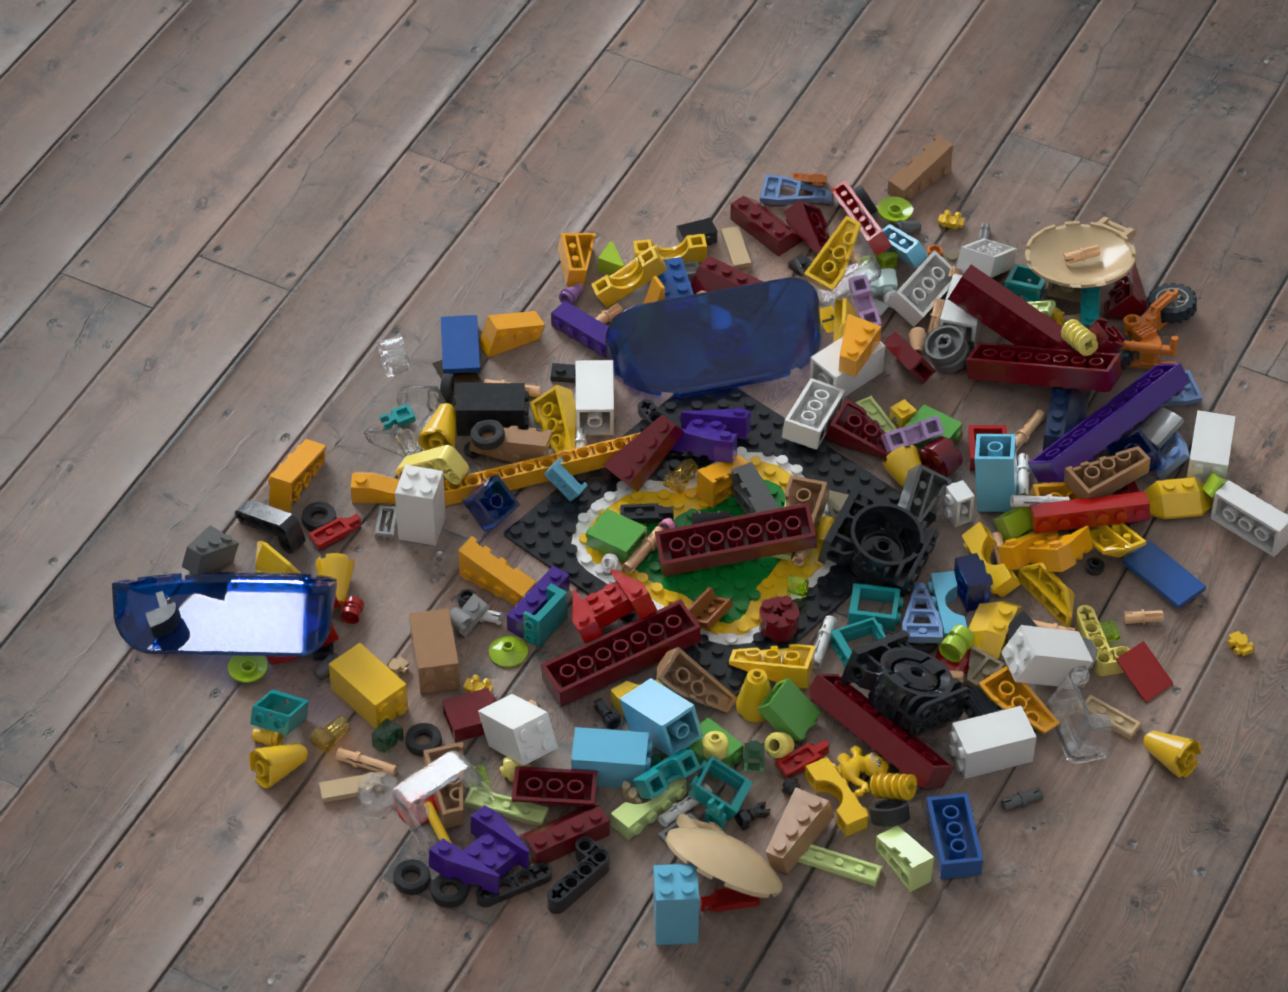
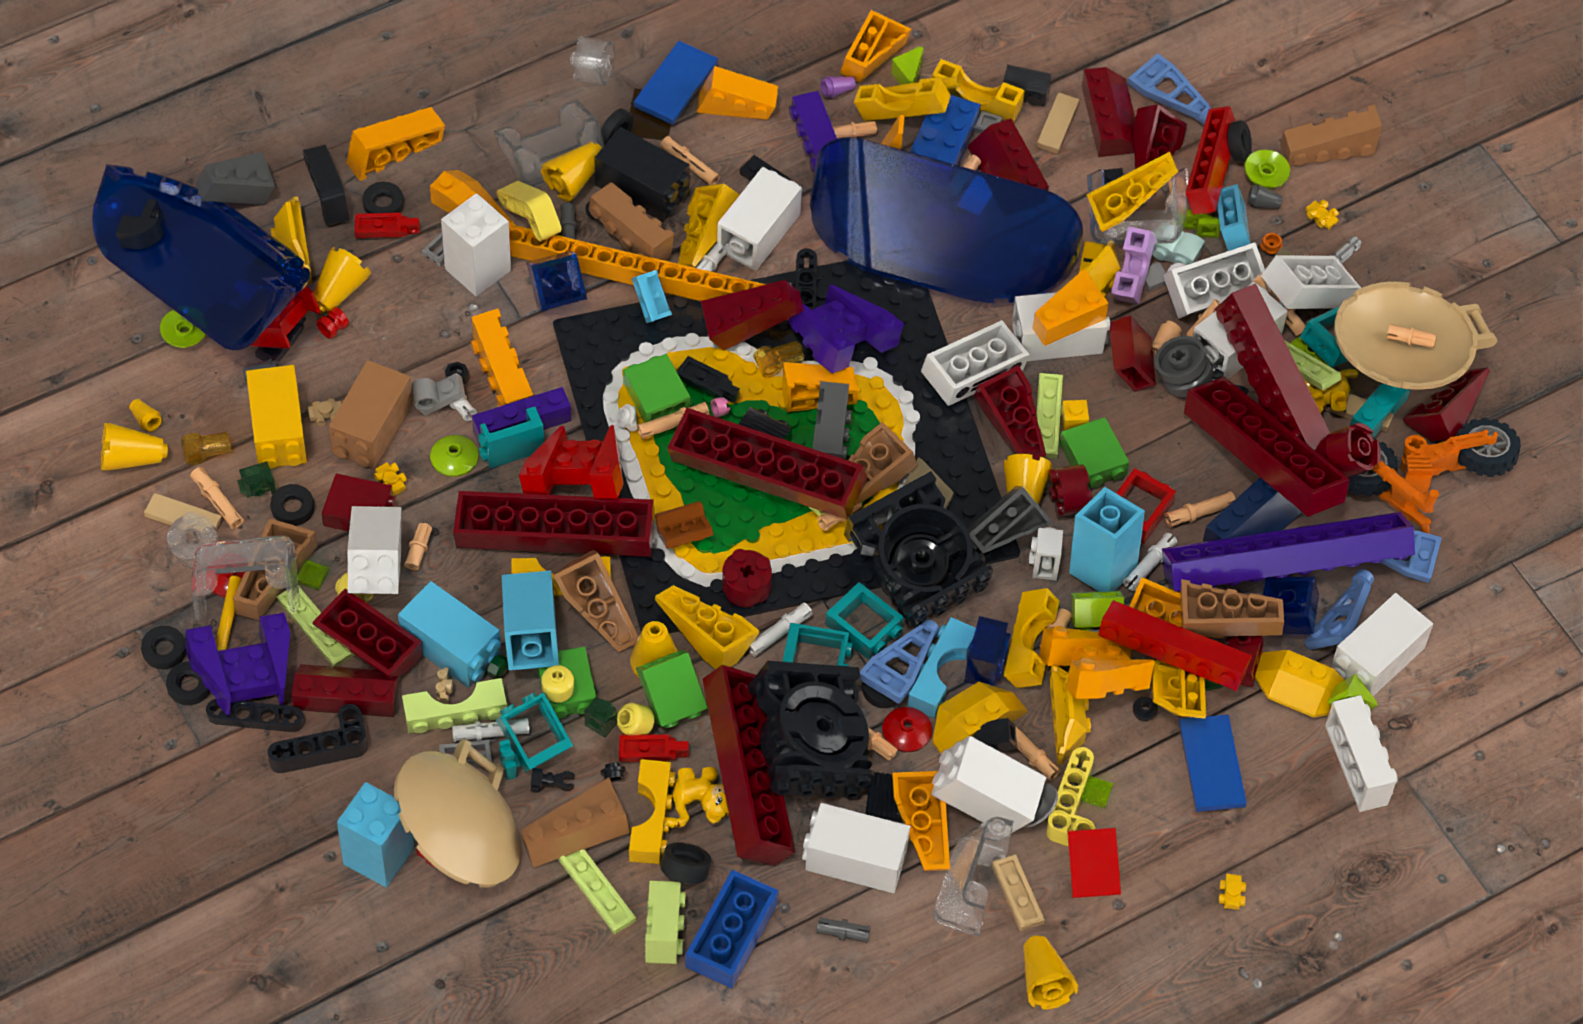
camera: 30 degrees right, 10 degrees up
(285, 715) = (178, 379): teal window -> none
(400, 416) = (548, 132): teal plate -> none
(487, 443) = (605, 214): black tyre -> none
(610, 719) = (492, 590): black piece -> none
(676, 766) = (499, 683): teal arch -> none
(798, 585) = (799, 551): clear neon green tile -> none
(816, 179) = (1204, 85): orange wing -> none
(893, 786) = (710, 836): yellow piece -> none
(912, 434) = (1055, 446): lavender arch -> none
(956, 643) = (906, 715): lime wheel -> none
(981, 666) = (921, 754): dark tan wing -> none
(1026, 501) = (1114, 593): white pin -> none
(1079, 337) = (1318, 434): light yellow piece -> none
(1143, 616) = (1148, 798): light nougat axle -> none
(1160, 426) = (1343, 587): light grey slope -> none

